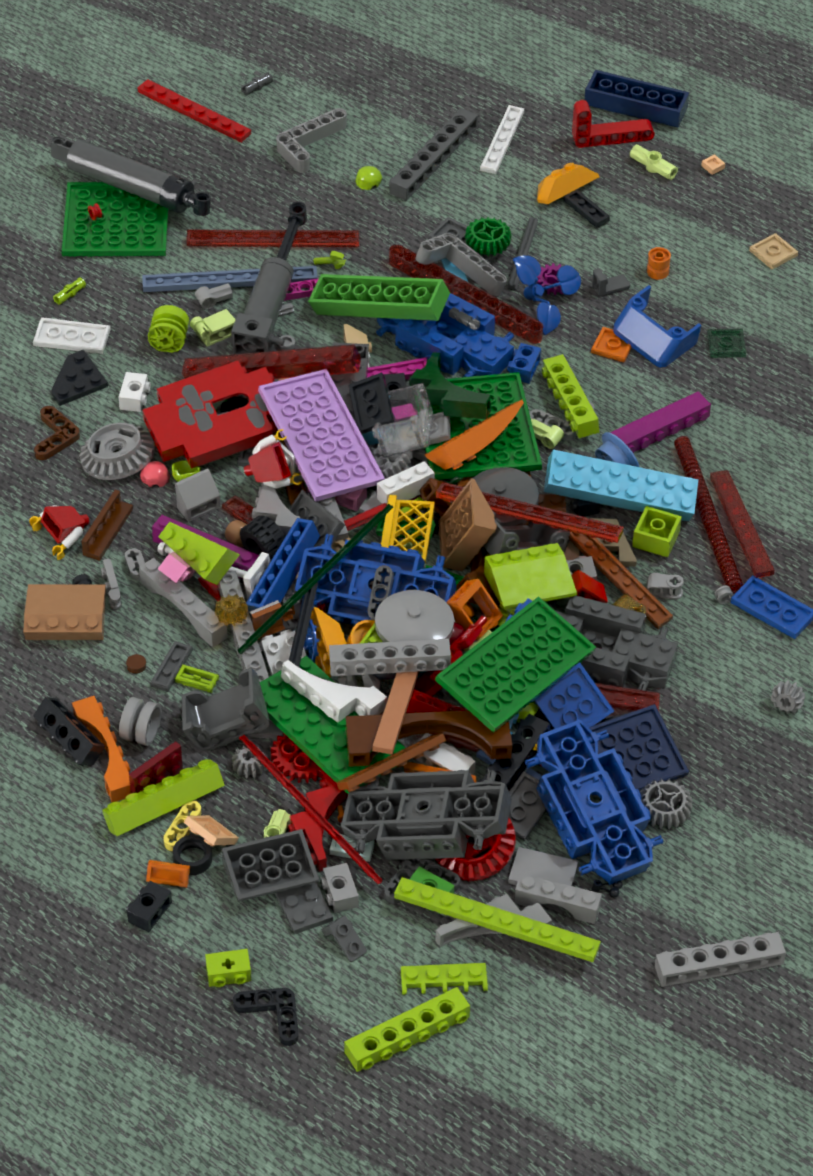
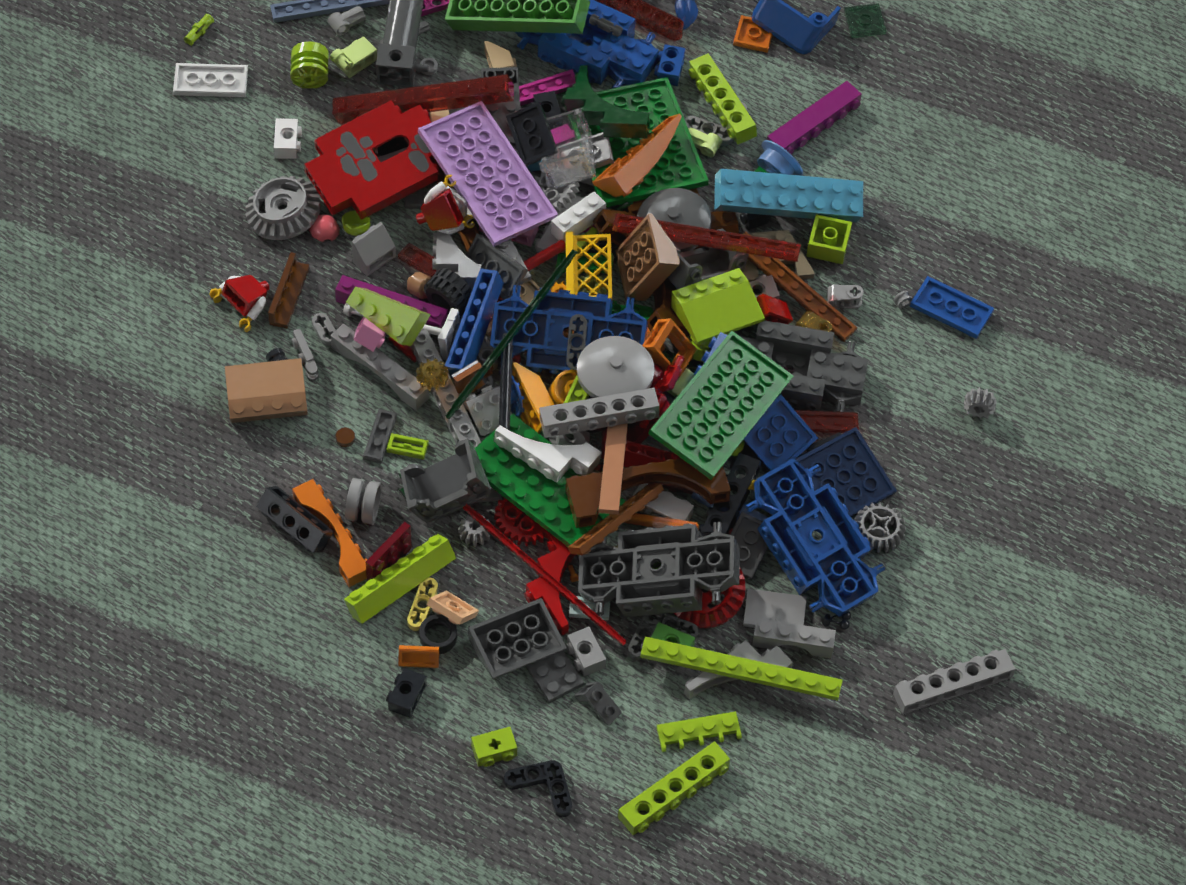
camera: 10 degrees left, 10 degrees up
(60, 435) = (222, 192): reddish brown beam -> none
(77, 379) = (226, 128): black plate -> none
(277, 824) = (514, 594): yellowish green piece -> none
(709, 515) = (875, 214): clear red piece -> none
(742, 524) = (909, 220): clear red tile -> none

